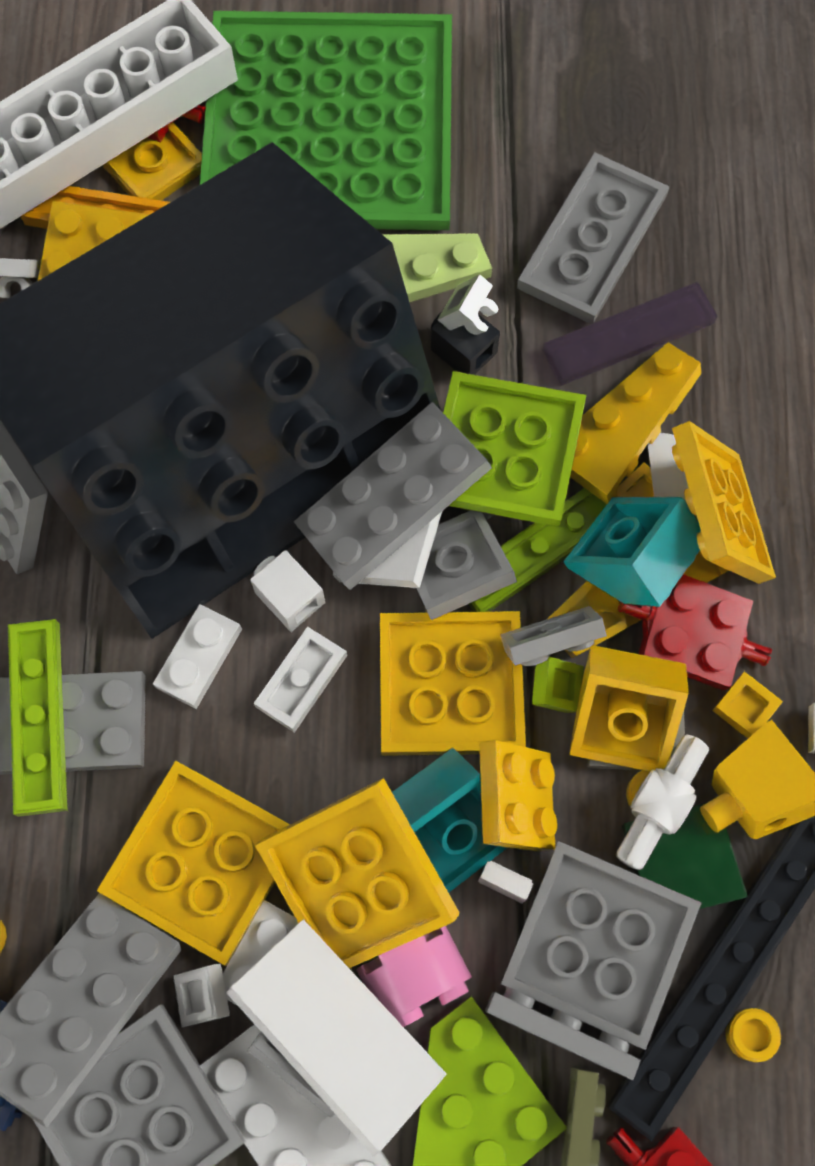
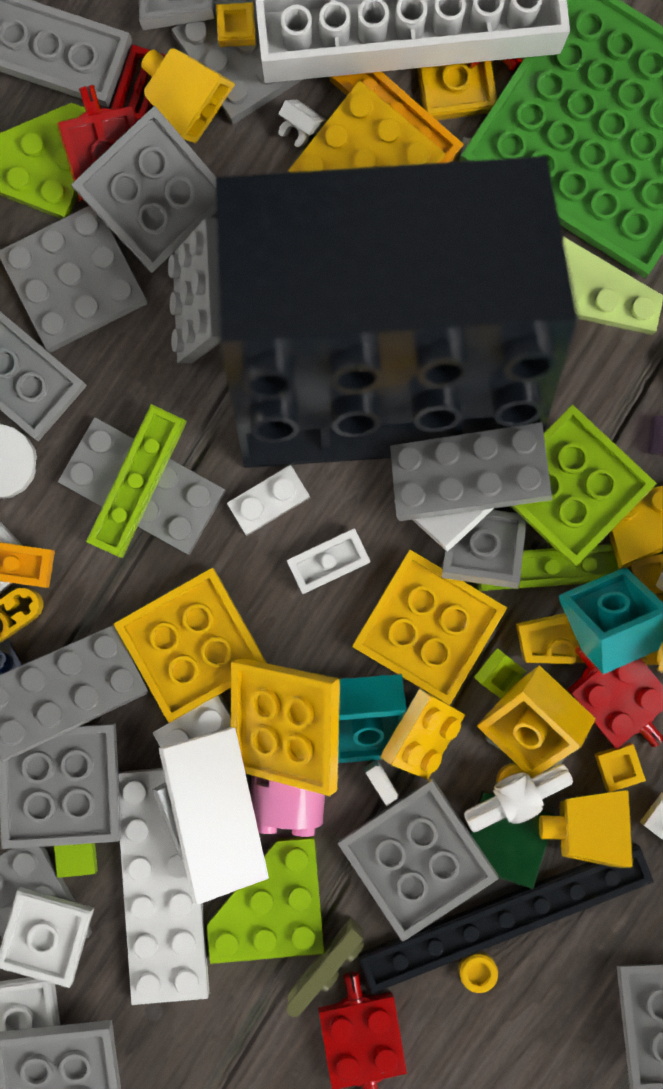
camera: 25 degrees right, 15 degrees up
(201, 995) = (143, 731): white tile -> none
(287, 589) = (356, 491): white brick -> none
(462, 349) = (598, 377): black brick -> none
(466, 302) = (615, 358): white tile -> none
(564, 1032) = (357, 897): light grey plate -> none
(568, 631) = (517, 643): light grey plate -> none

